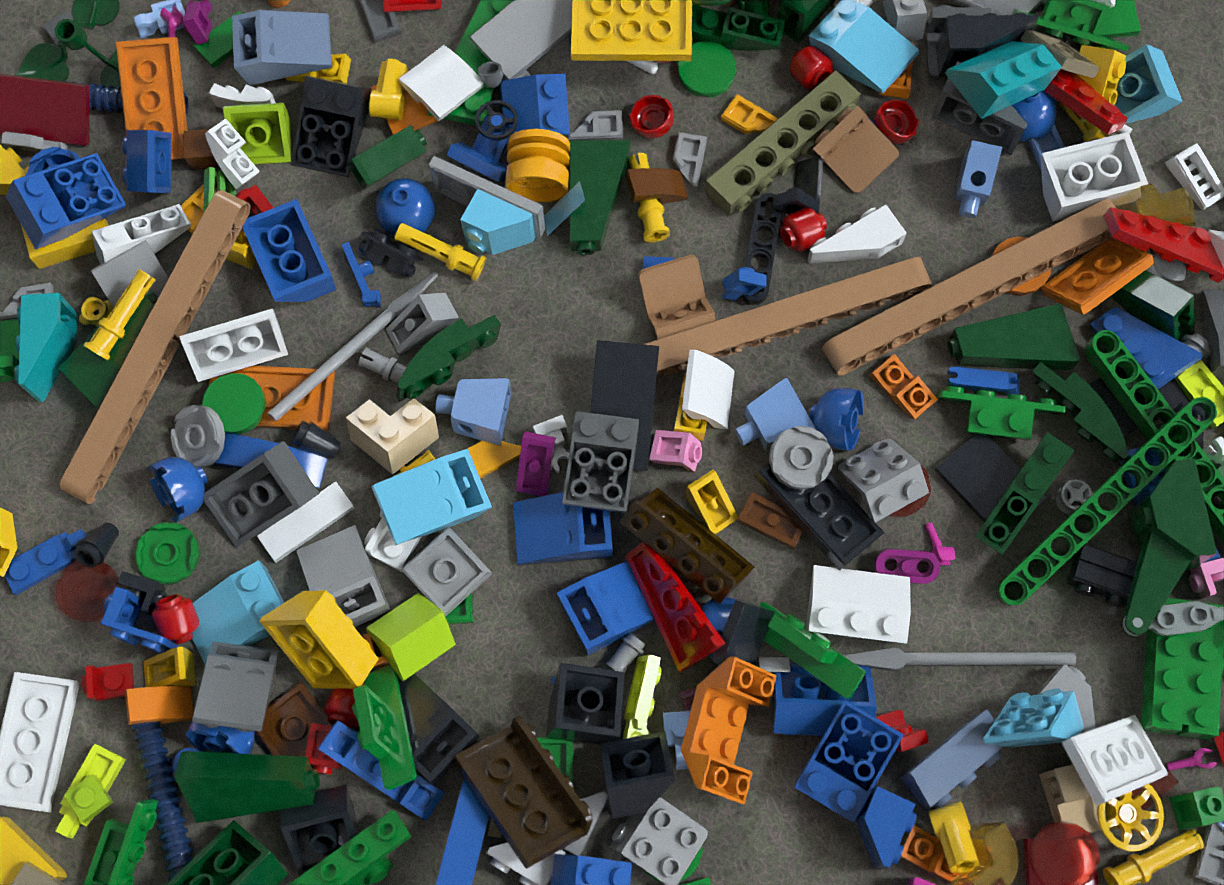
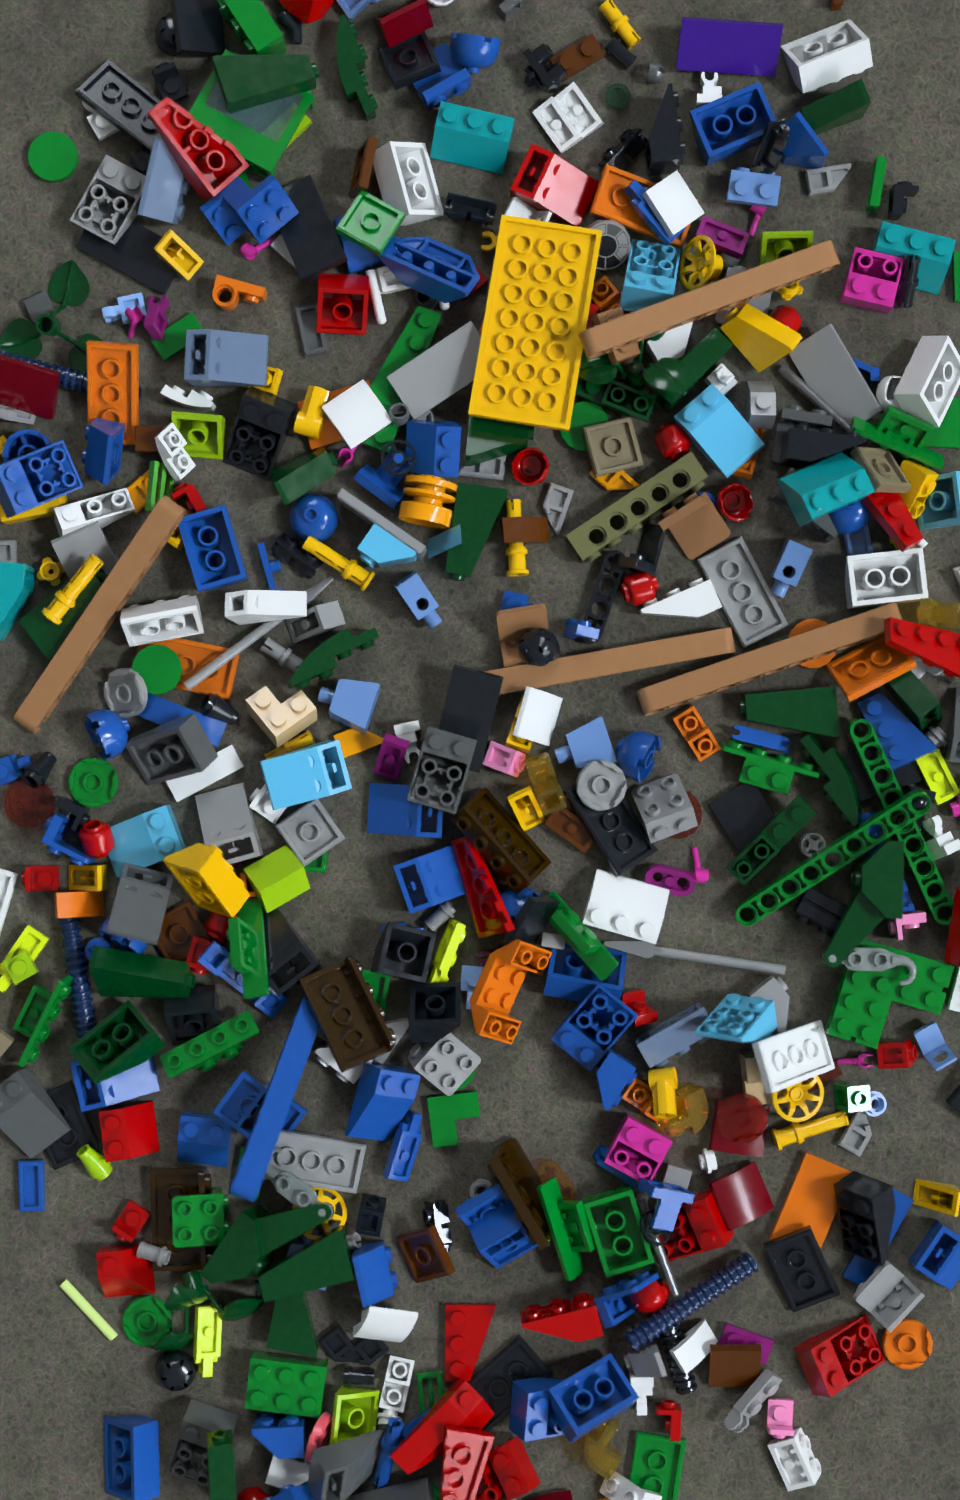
camera: 15 degrees right, 15 degrees up
(353, 309) = (264, 605): none -> white slope
(437, 133) = (347, 453): none -> dark pink hand
(535, 264) = (411, 590): none -> medium blue torso
(606, 88) = (494, 438): none -> dark green slope
(690, 301) = (535, 641): none -> black helmet
(733, 471) = (545, 783): none -> clear yellow brick
(743, 82) = (612, 447): none -> dark tan plate
(931, 222) = (742, 592): none -> light grey tile

